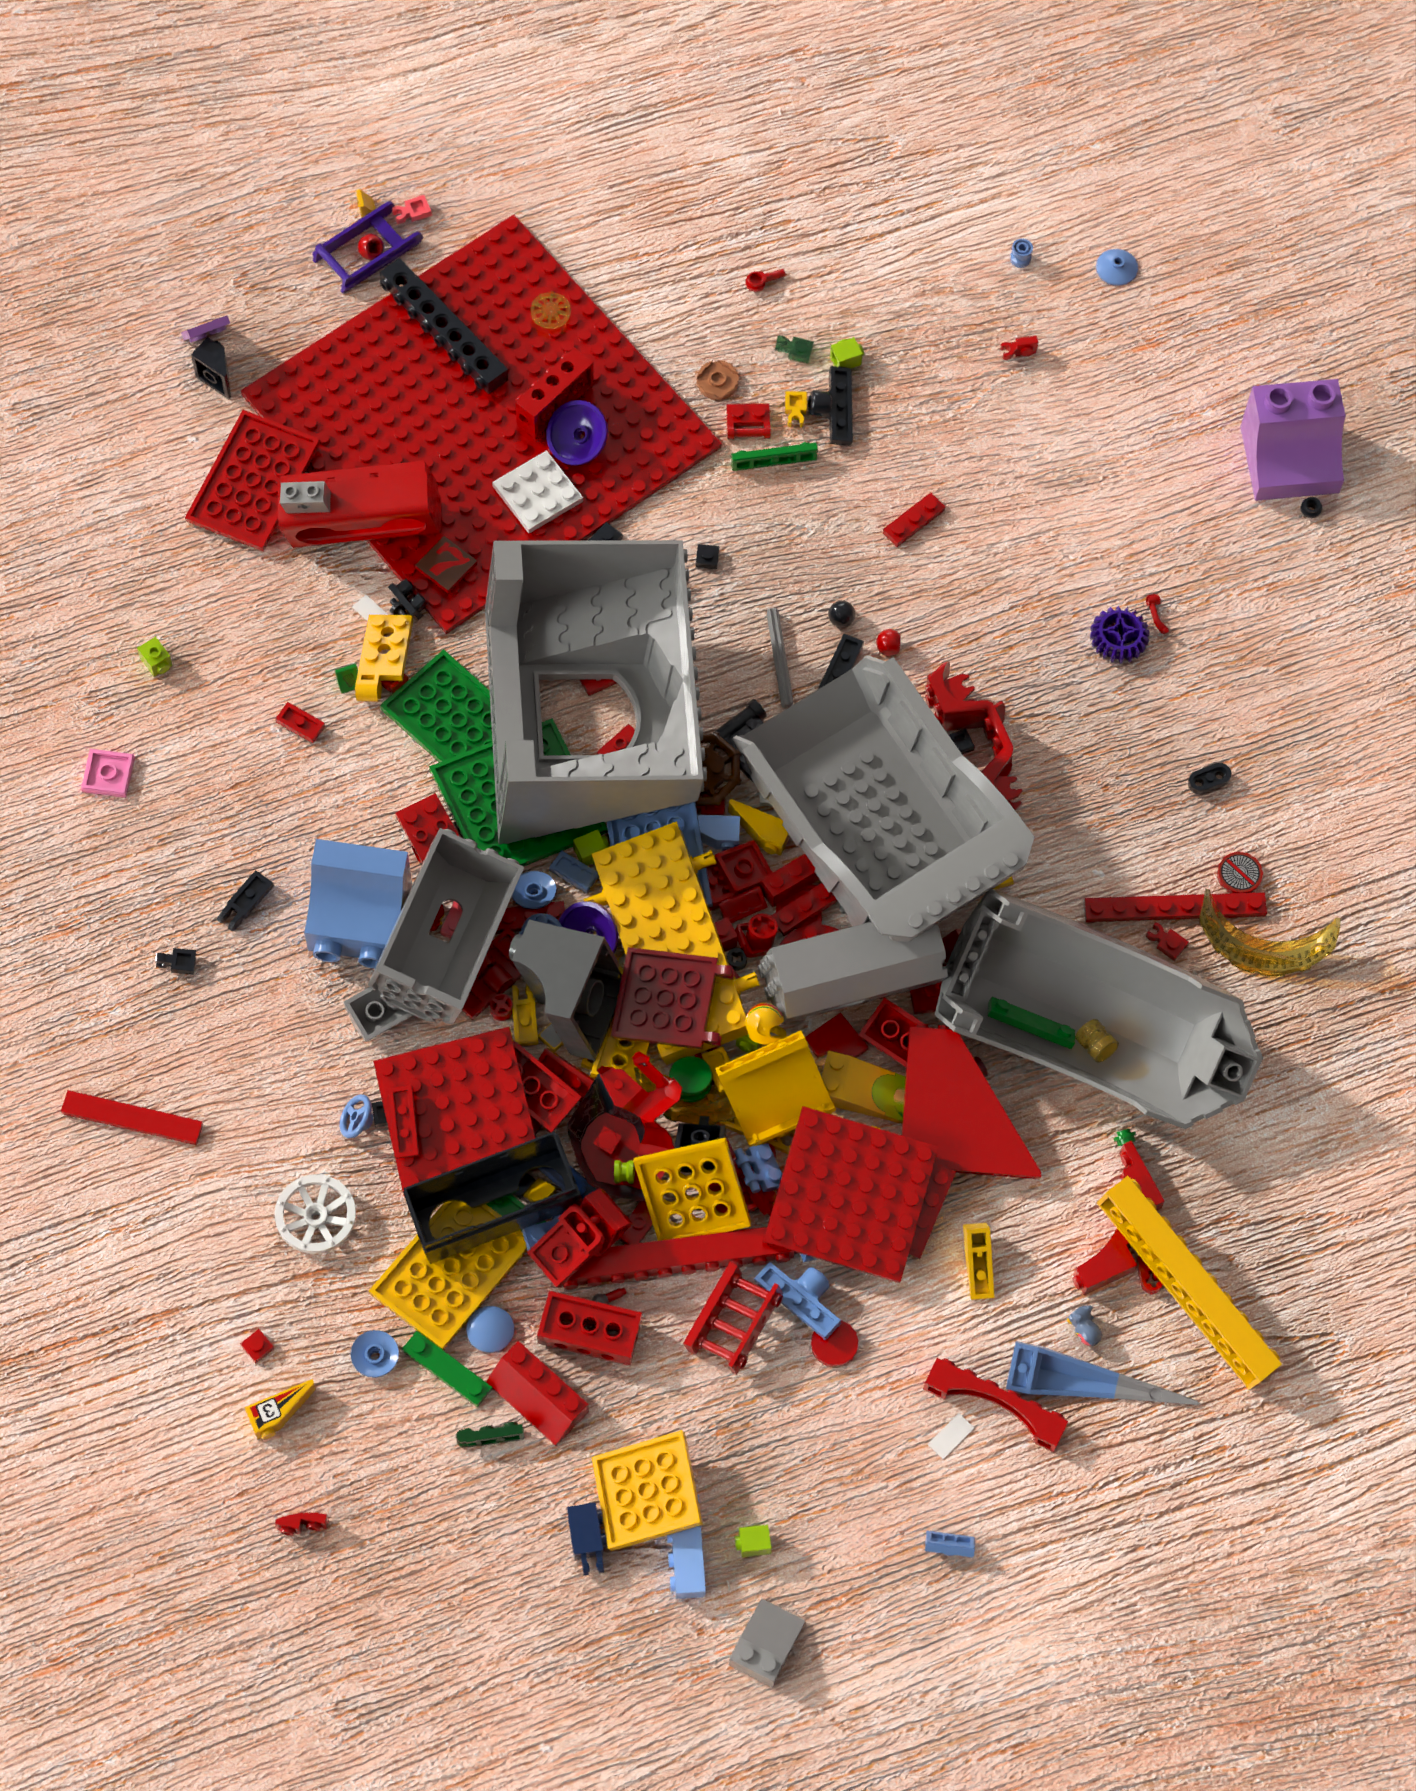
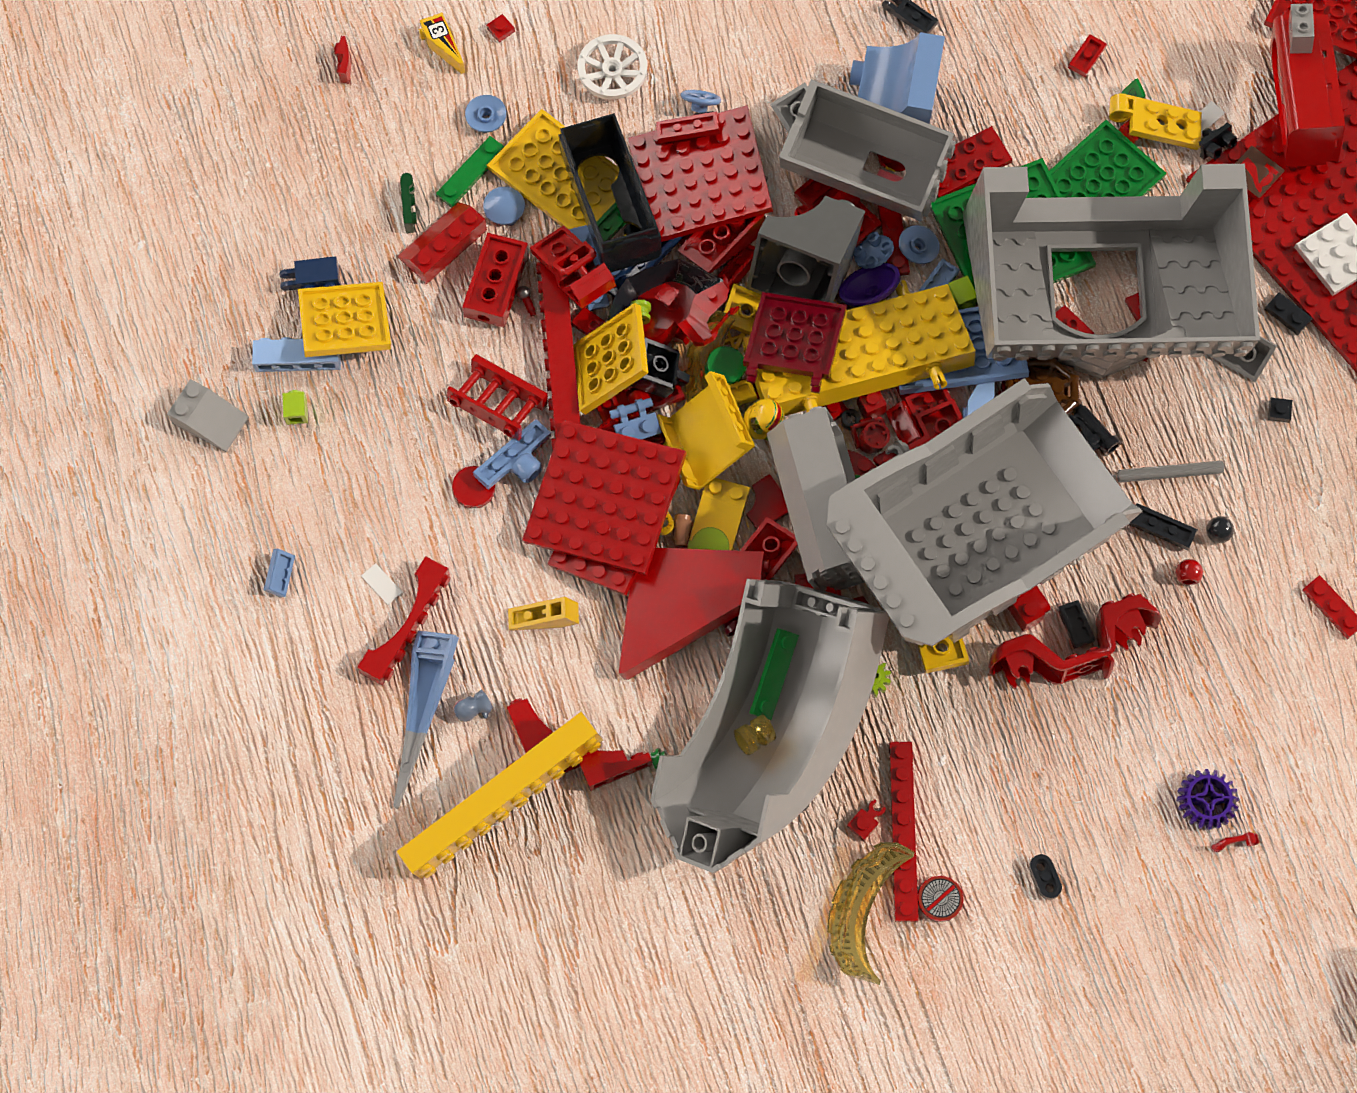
camera: 95 degrees right, 5 degrees up
(778, 903) = (898, 448): none -> light grey plate
(874, 1120) = (681, 529): none -> nougat cone

